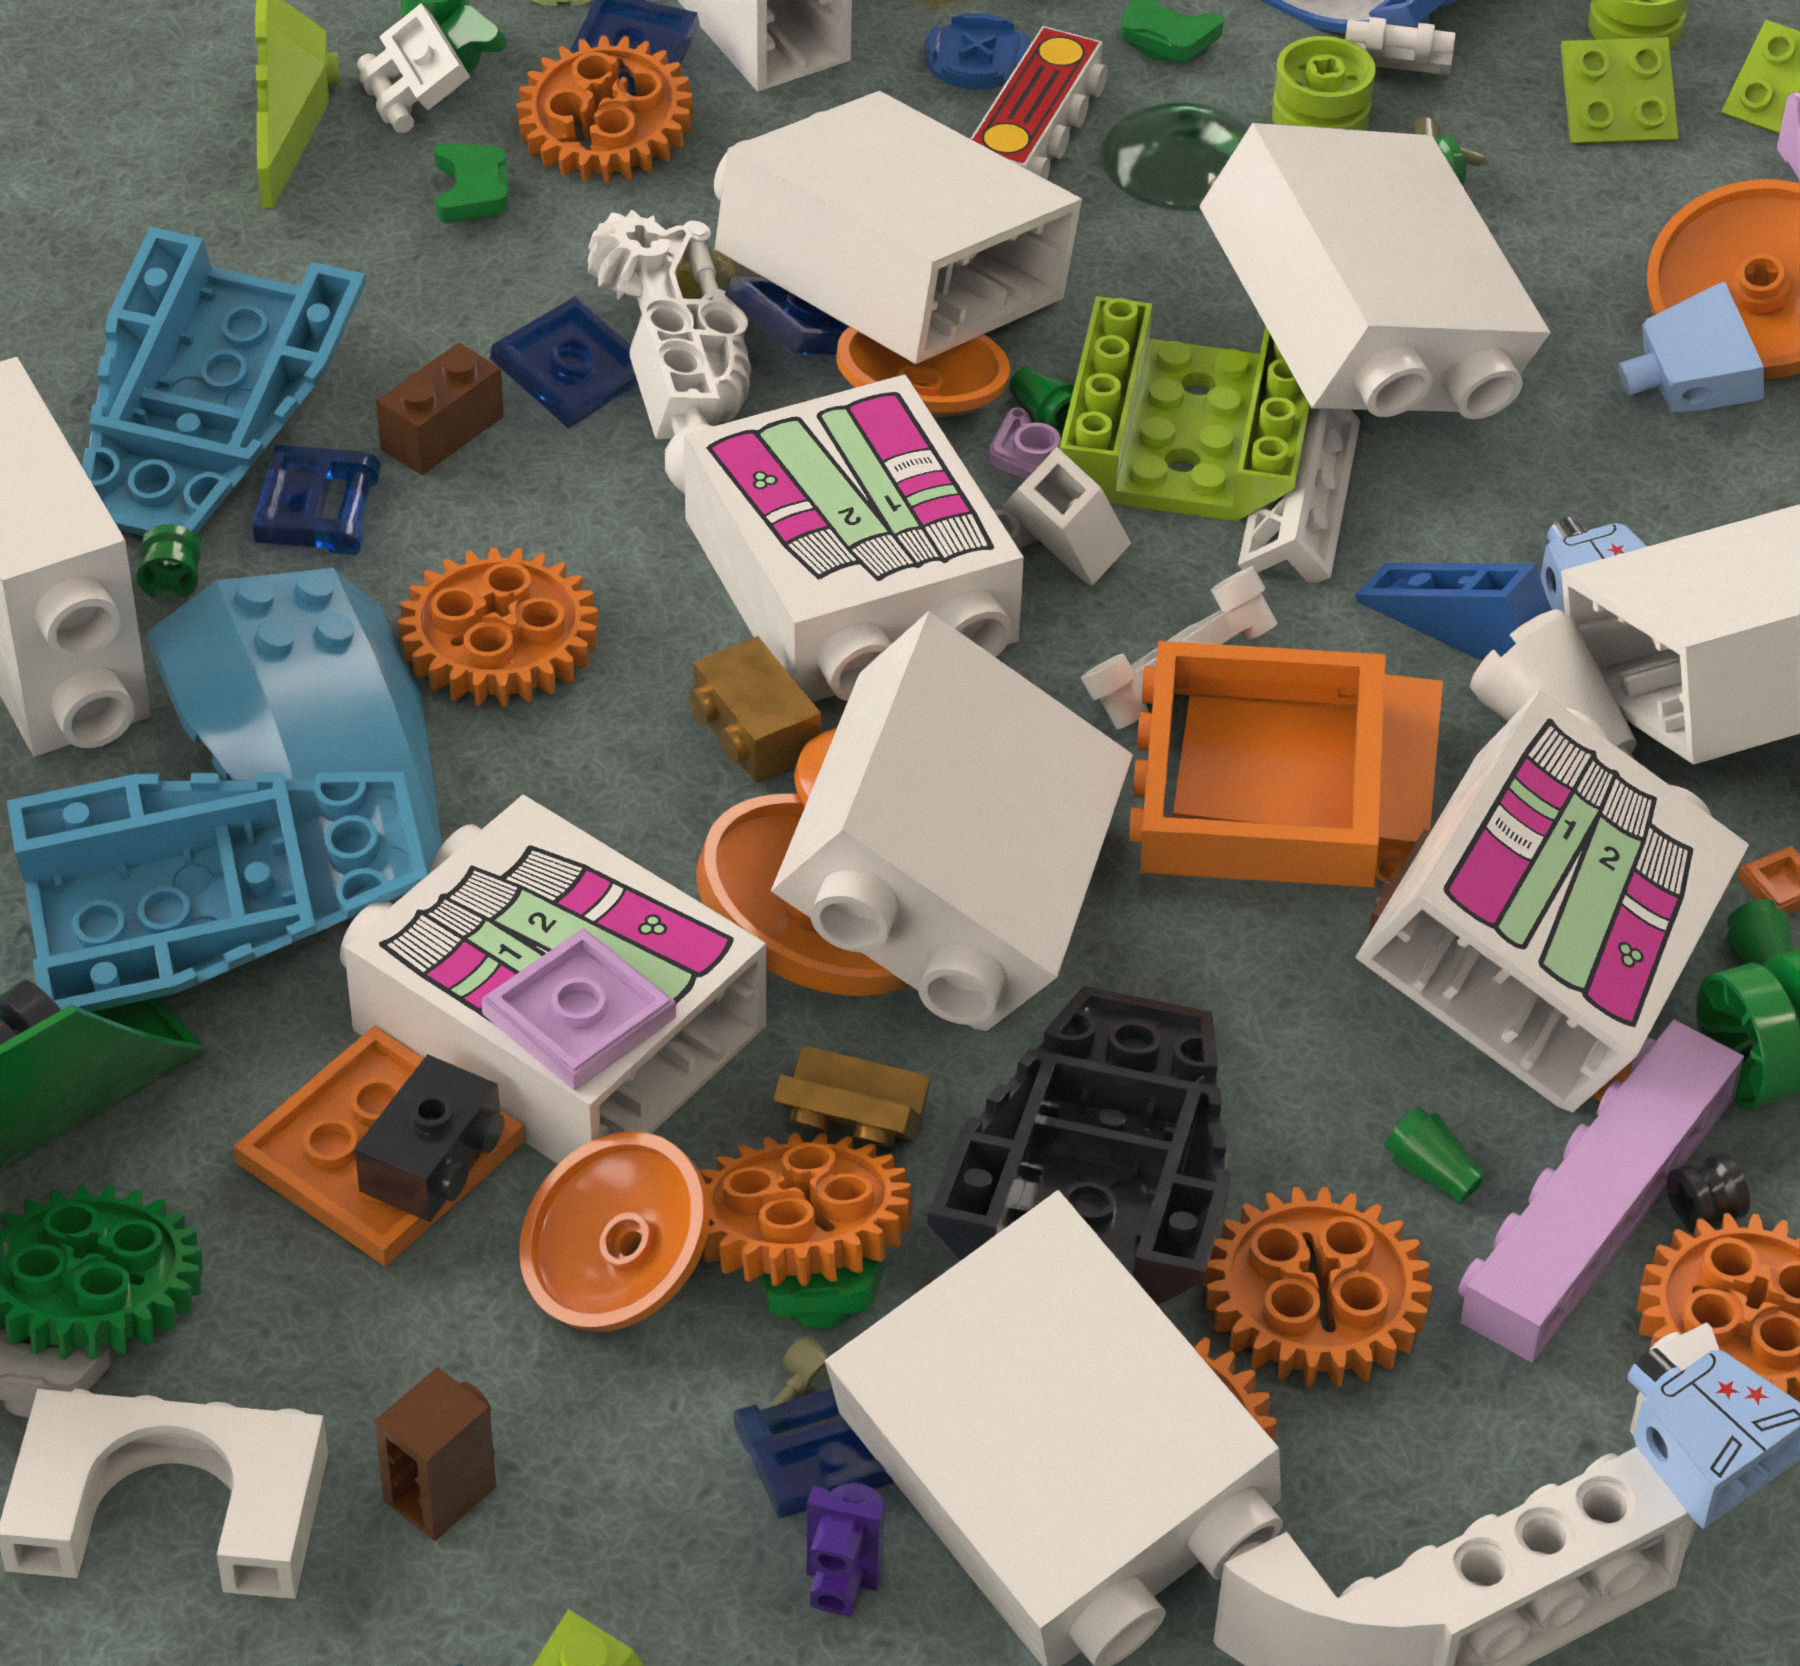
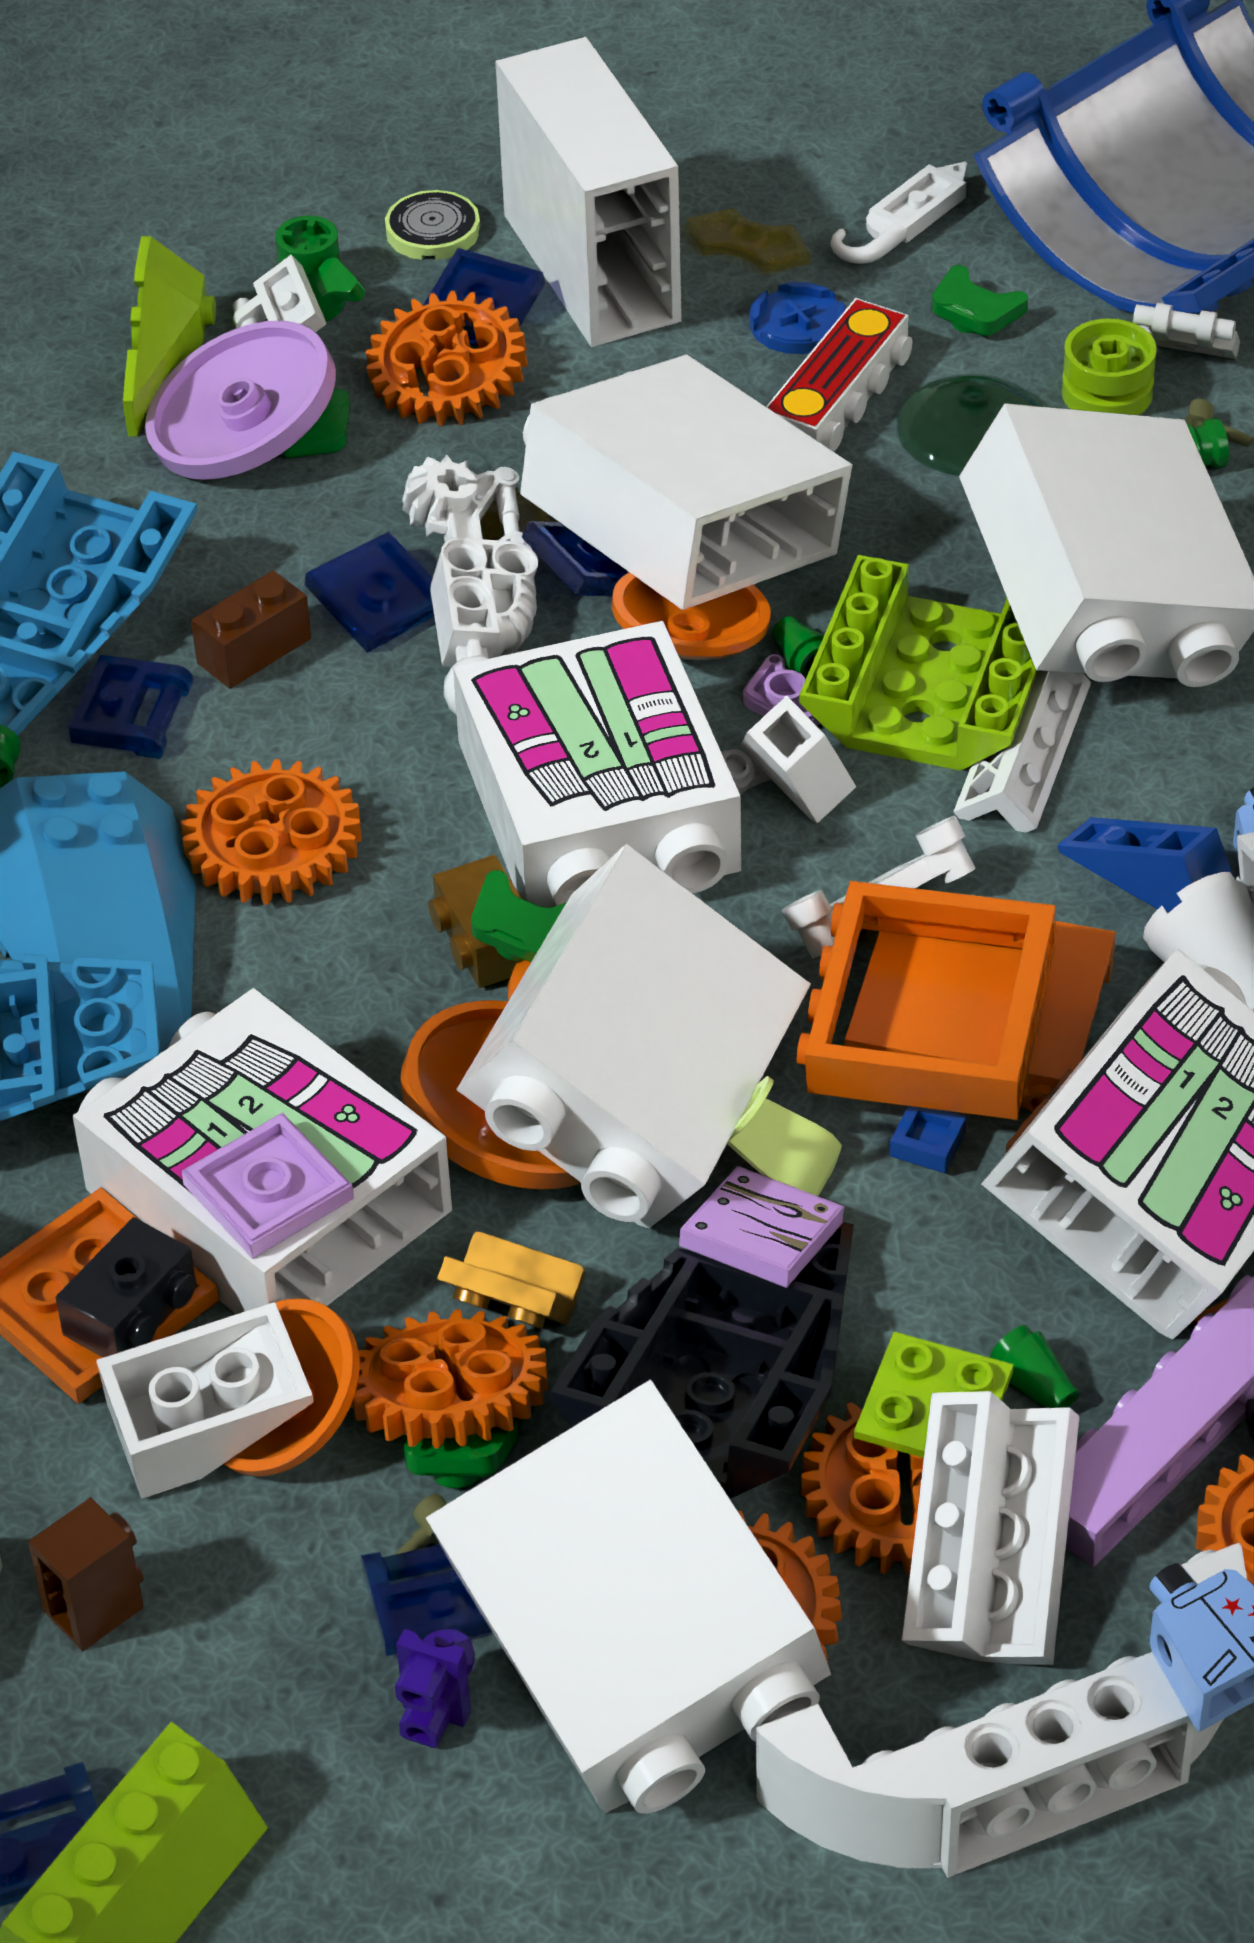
camera: 10 degrees right, 0 degrees up
(387, 162) = (240, 400): none -> lavender dish
(531, 1247) = (202, 1396): none -> white slope
(793, 709) = (510, 922): none -> green piece
(1117, 1020) = (761, 1226): none -> lavender tile
(1127, 932) = (784, 1143): none -> yellowish green piece
(1275, 913) = (928, 1137): none -> blue plate
(1341, 1195) = (903, 1388): none -> lime plate
(1428, 1329) = (991, 1529): none -> white slope

